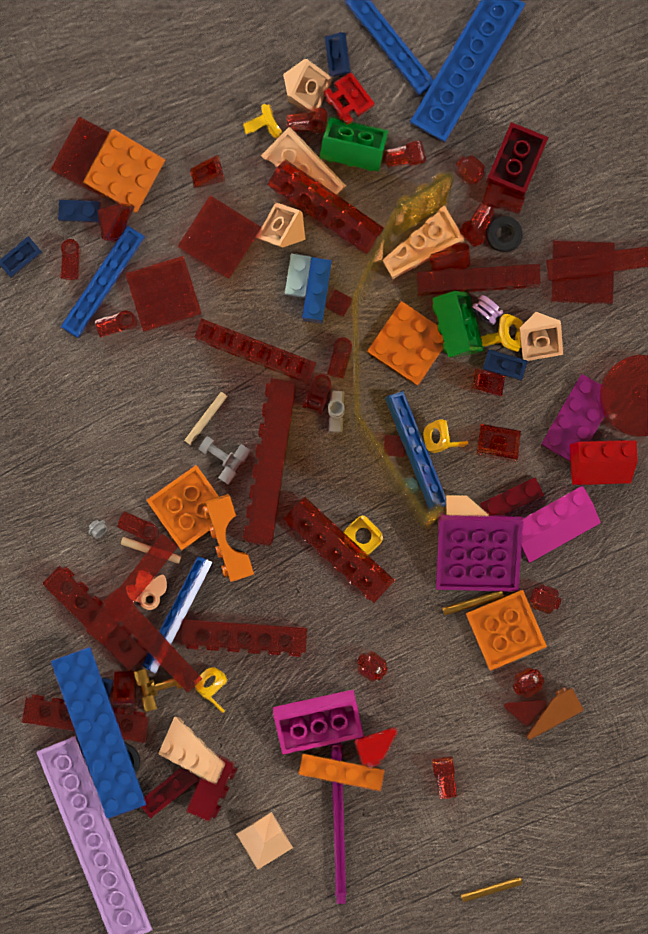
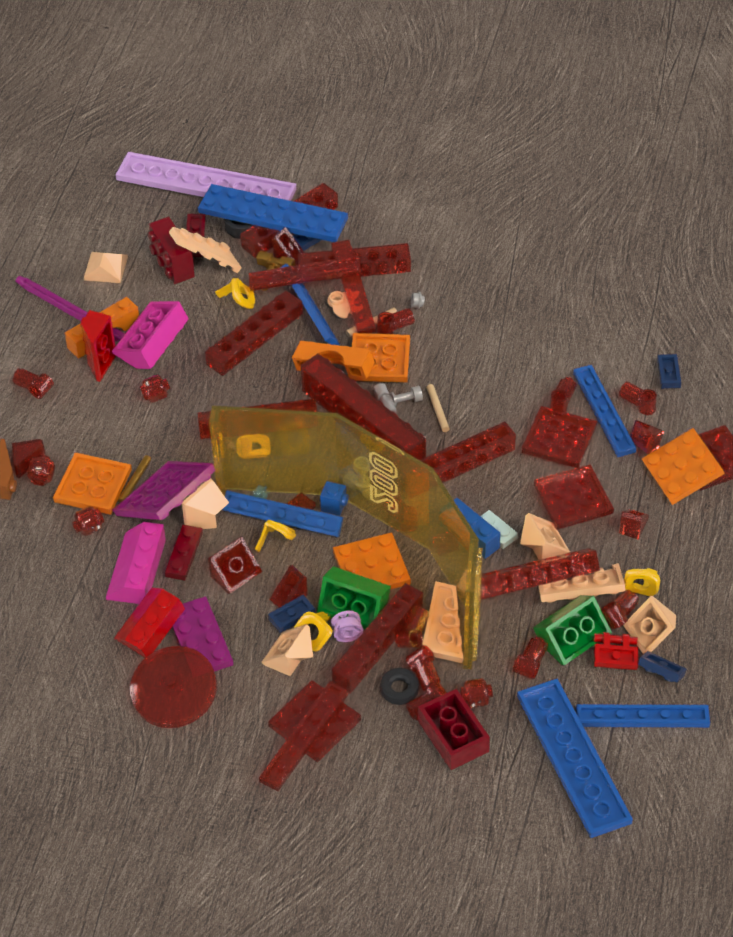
camera: 125 degrees right, 35 degrees down
(78, 211) = (676, 426): dark blue plate -> none
(373, 419) = (333, 498): none -> blue brick

